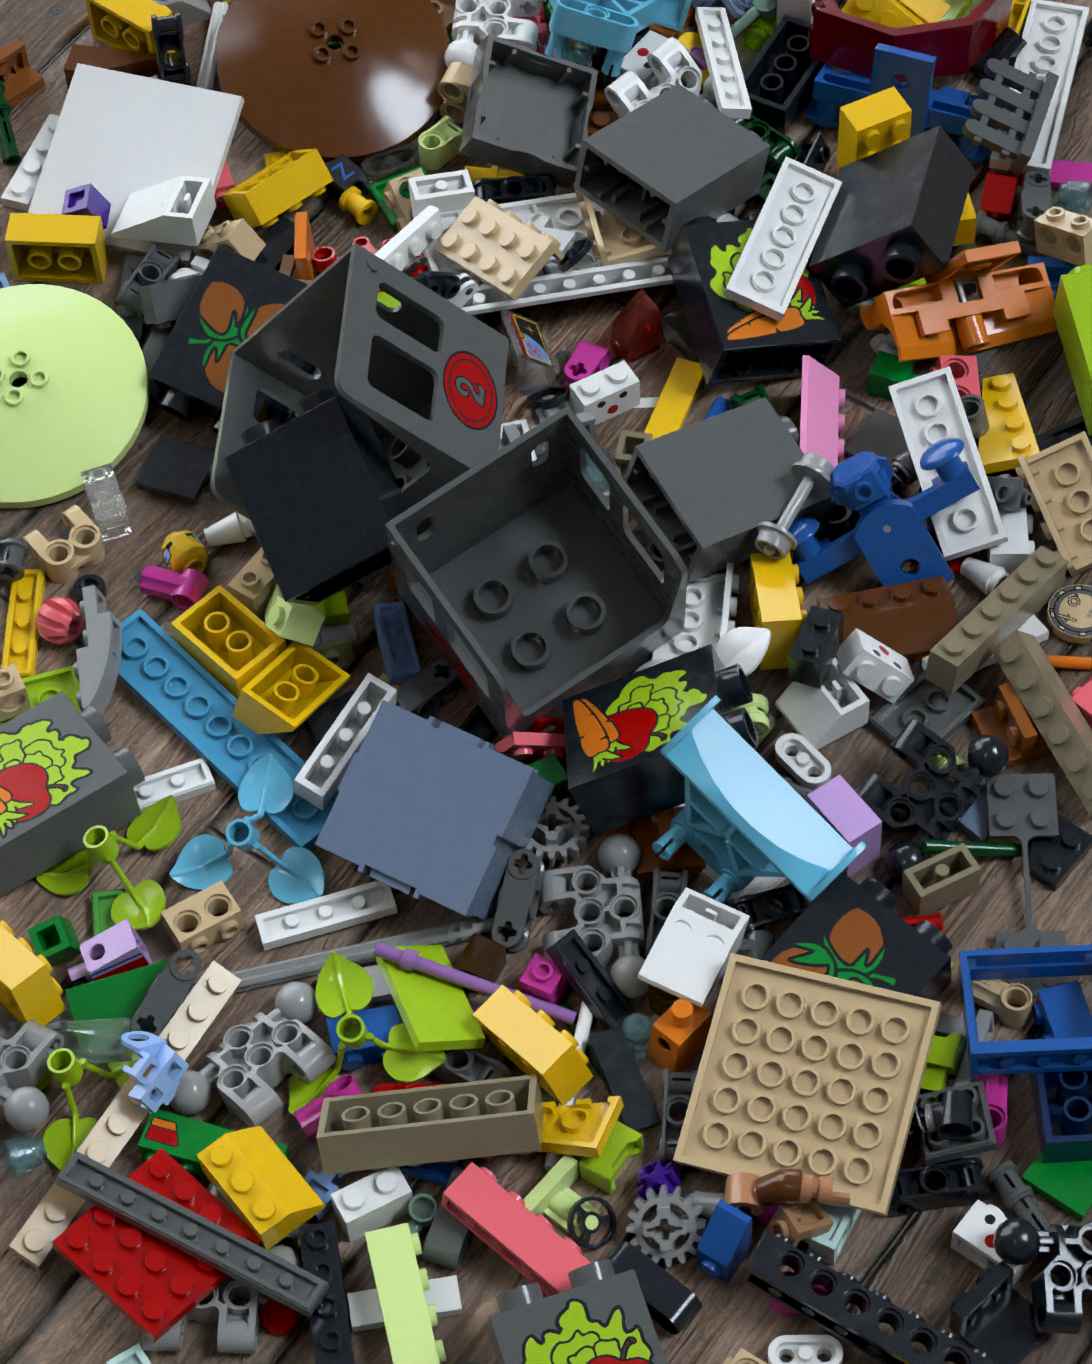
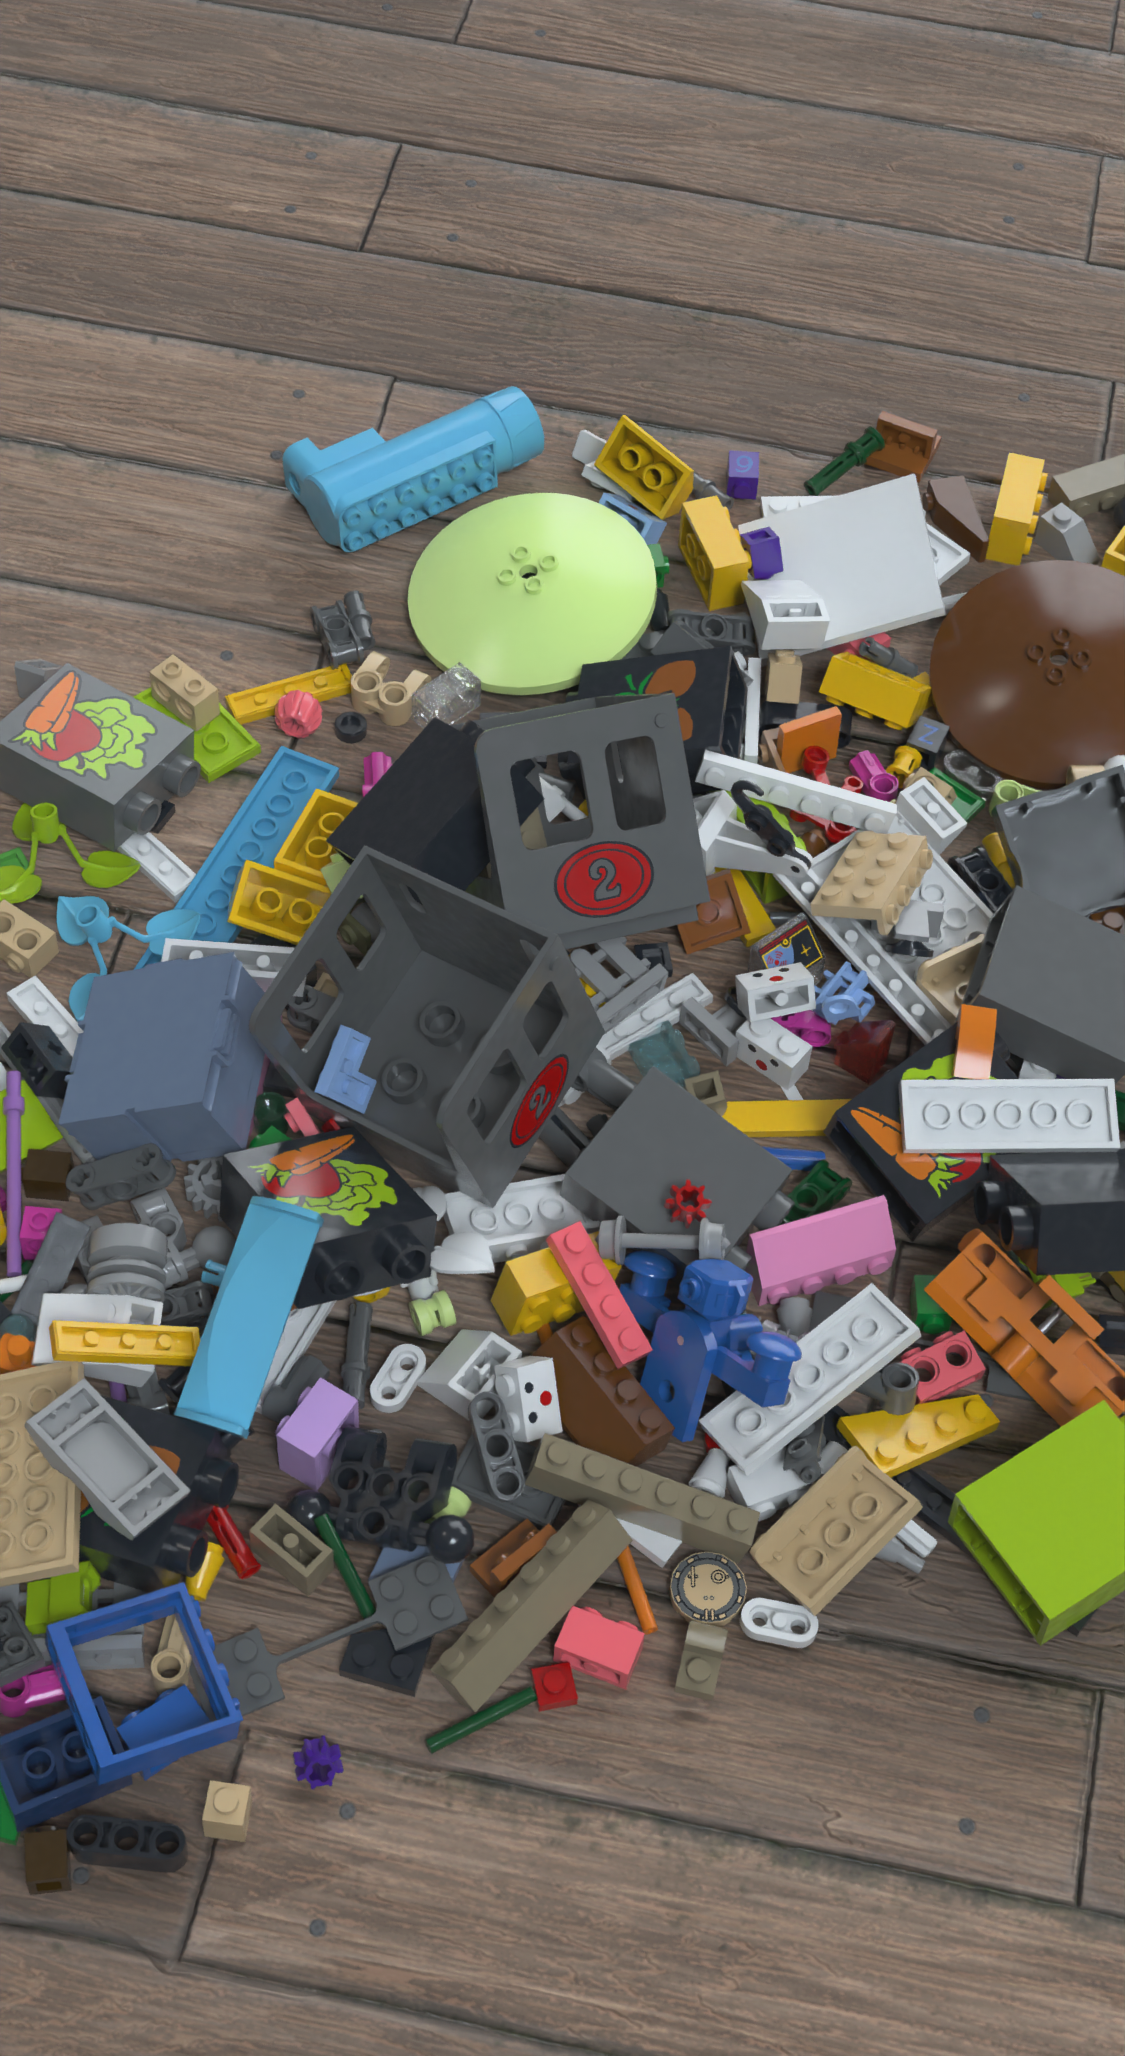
camera: 60 degrees right, 0 degrees up
(101, 658) = (261, 755): light grey slope -> none
(169, 36) = (991, 543): black piece -> none
(243, 169) = (887, 657): none -> dark grey pin
(364, 927) = (39, 1059): none -> black brick
(376, 226) = (876, 780): none -> dark pink piece
(522, 686) = (340, 1075): none -> light blue plate
(567, 360) = (775, 992): none -> white brick
(583, 324) = (848, 999): none -> light blue piece
(635, 904) = (127, 1261): none -> light grey wheel
(708, 222) = (974, 1042): none -> orange slope
(725, 918) = (123, 1343): none -> yellow tile
(772, 473) = (684, 1194): none -> red gear
(815, 573) = (599, 1294): none -> coral plate
(816, 646) = (509, 1327): black brick -> none
(851, 950) = (105, 1460): none -> light grey slope
(914, 699) = (496, 1427): none -> dark grey beam

